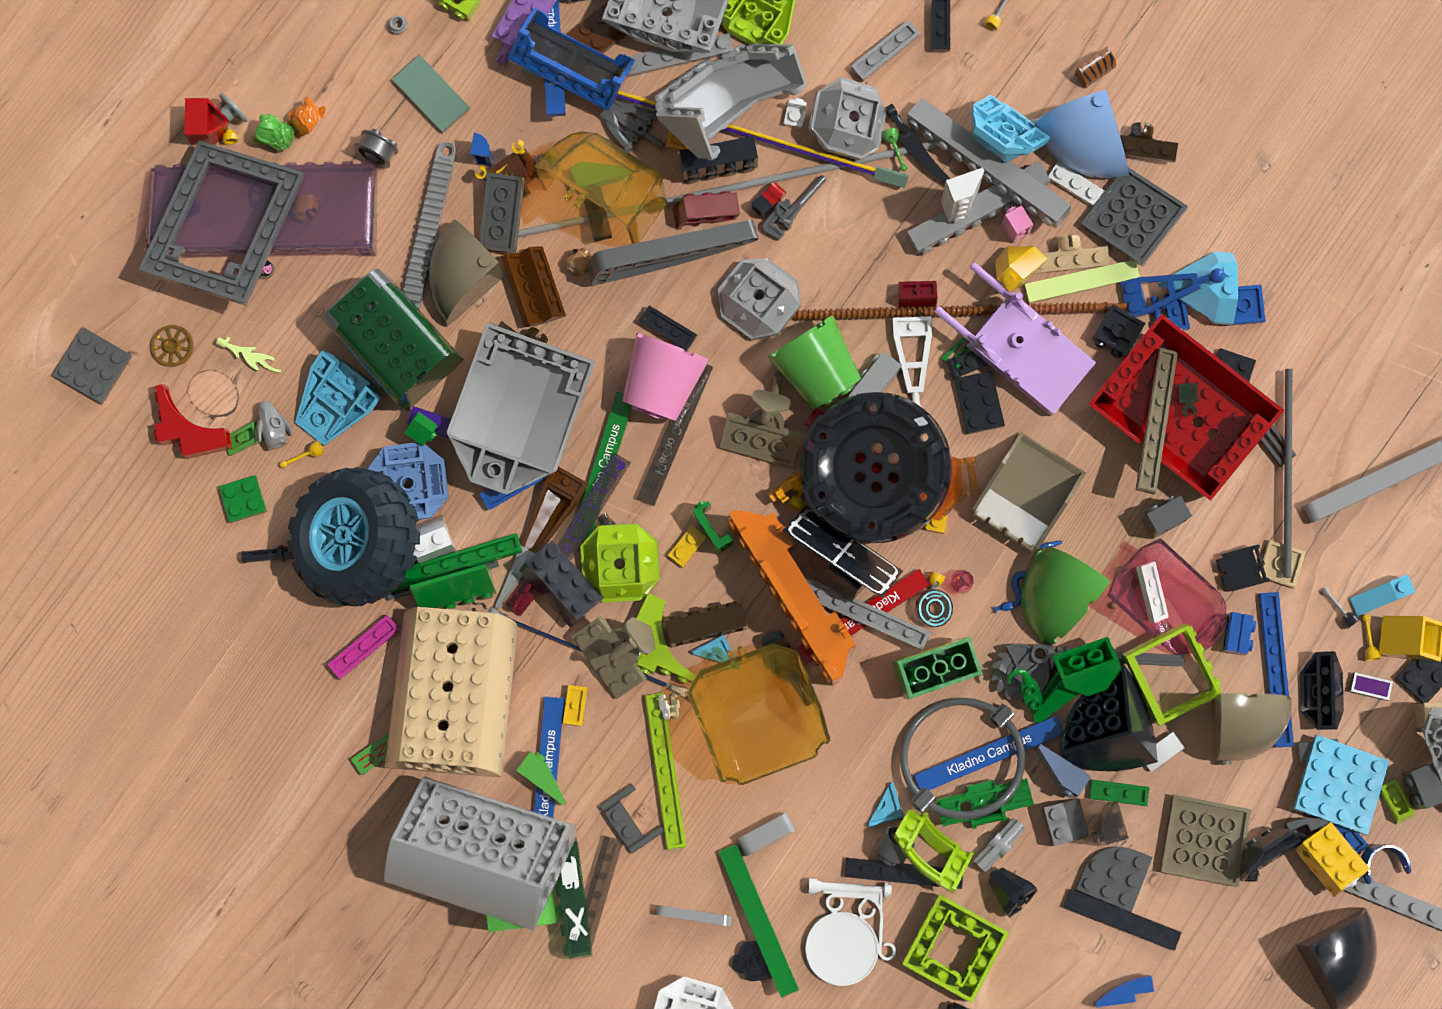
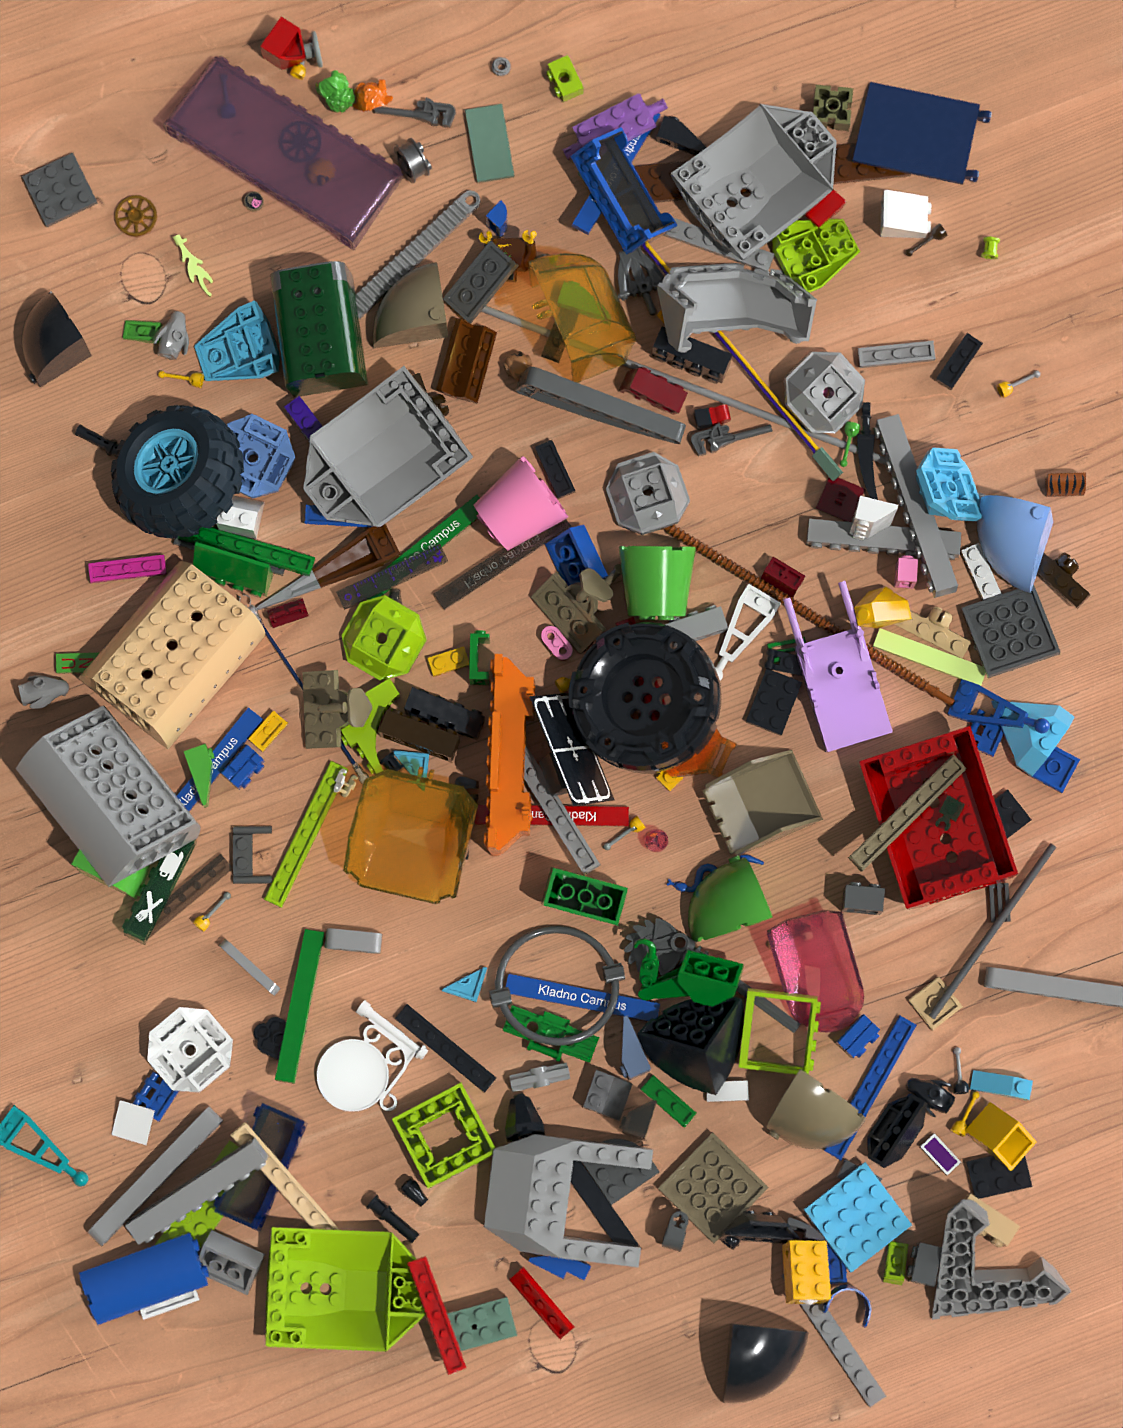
camera: 30 degrees right, 0 degrees up
(170, 496) = (51, 341): none -> black brick
(175, 428) = (94, 287): red arch -> none
(229, 287) = (212, 198): dark grey plate -> none
(243, 499) = (109, 381): green plate -> none
(360, 101) = (427, 112): none -> dark grey piece
(360, 798) = (42, 690): none -> light grey animal
(421, 429) = (292, 420): green brick -> none
(561, 583) = (322, 623): black brick -> none
(574, 750) = (243, 767): none -> blue brick
(628, 903) = (202, 921): none -> hinge
(696, 667) = (390, 758): none -> black bush
(714, 592) = (444, 713): none -> black wedge
(733, 388) = (574, 553): none -> blue slope
(767, 472) = (557, 643): none -> bright pink plate
(778, 492) = (554, 666): light orange plate -> none
(795, 113) = (784, 358): white bracket -> none
(888, 849) = (451, 1019): dark grey piece -> none
(919, 199) = (840, 499): none -> dark red piece
(944, 611) = (629, 847): clear smoke tile -> none
(957, 858) = (497, 1064): lime wedge -> none
(1062, 946) = (532, 1193): none -> light grey wedge
(1118, 332) = (930, 718): black plate -> none
(1152, 592) = (808, 953): white plate -> none
(1201, 901) = (673, 1235): none -> dark grey piece
(1242, 568) = (898, 984): black plate -> none
(1332, 640) = (932, 1093): none -> black animal

